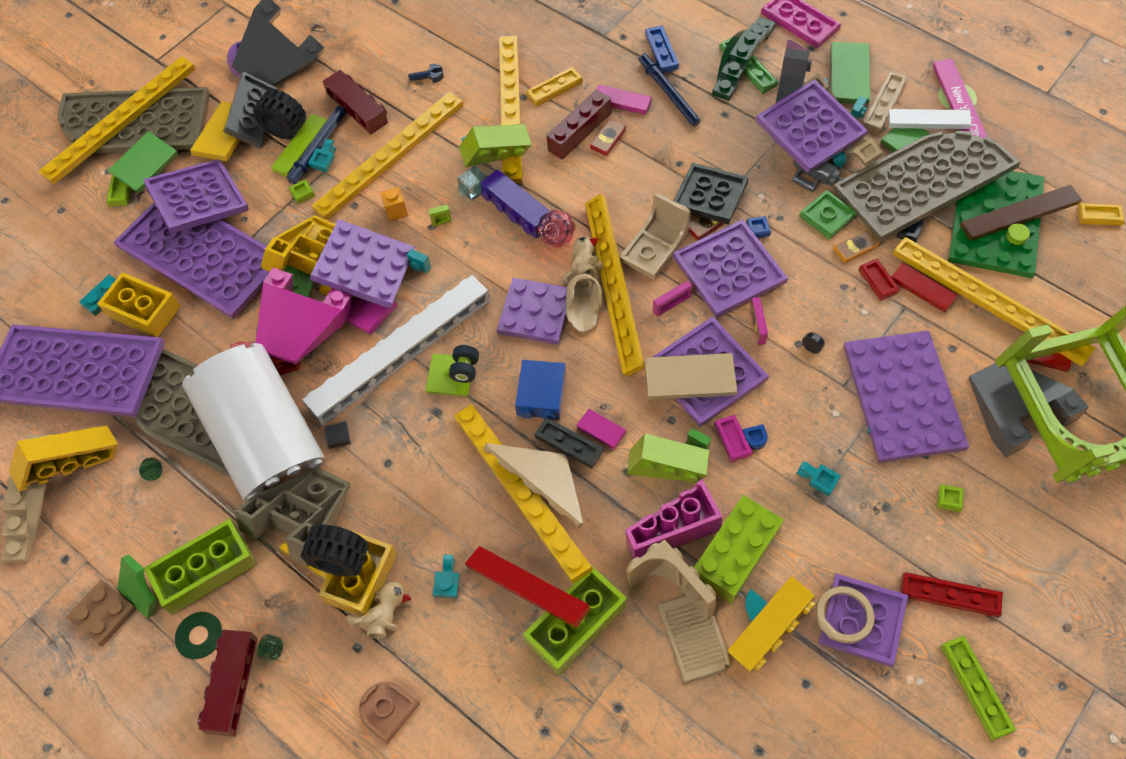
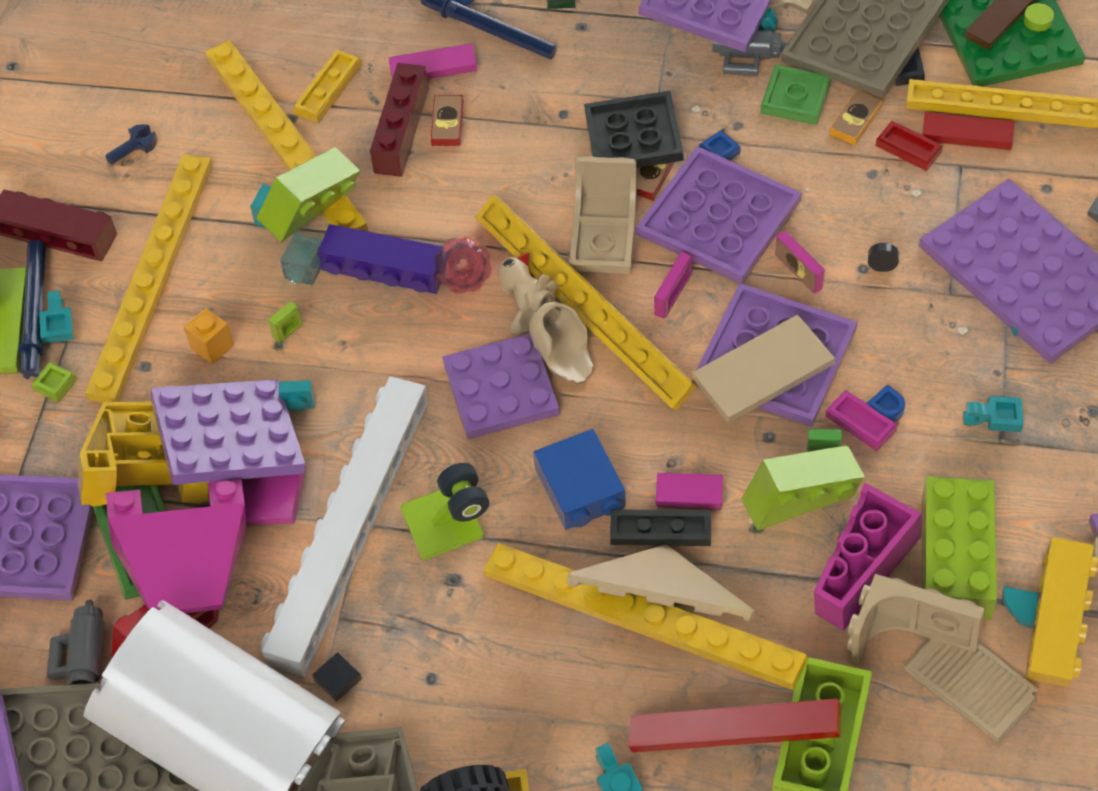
camera: 30 degrees left, 5 degrees down
(216, 344) = (84, 647): none -> dark grey piece

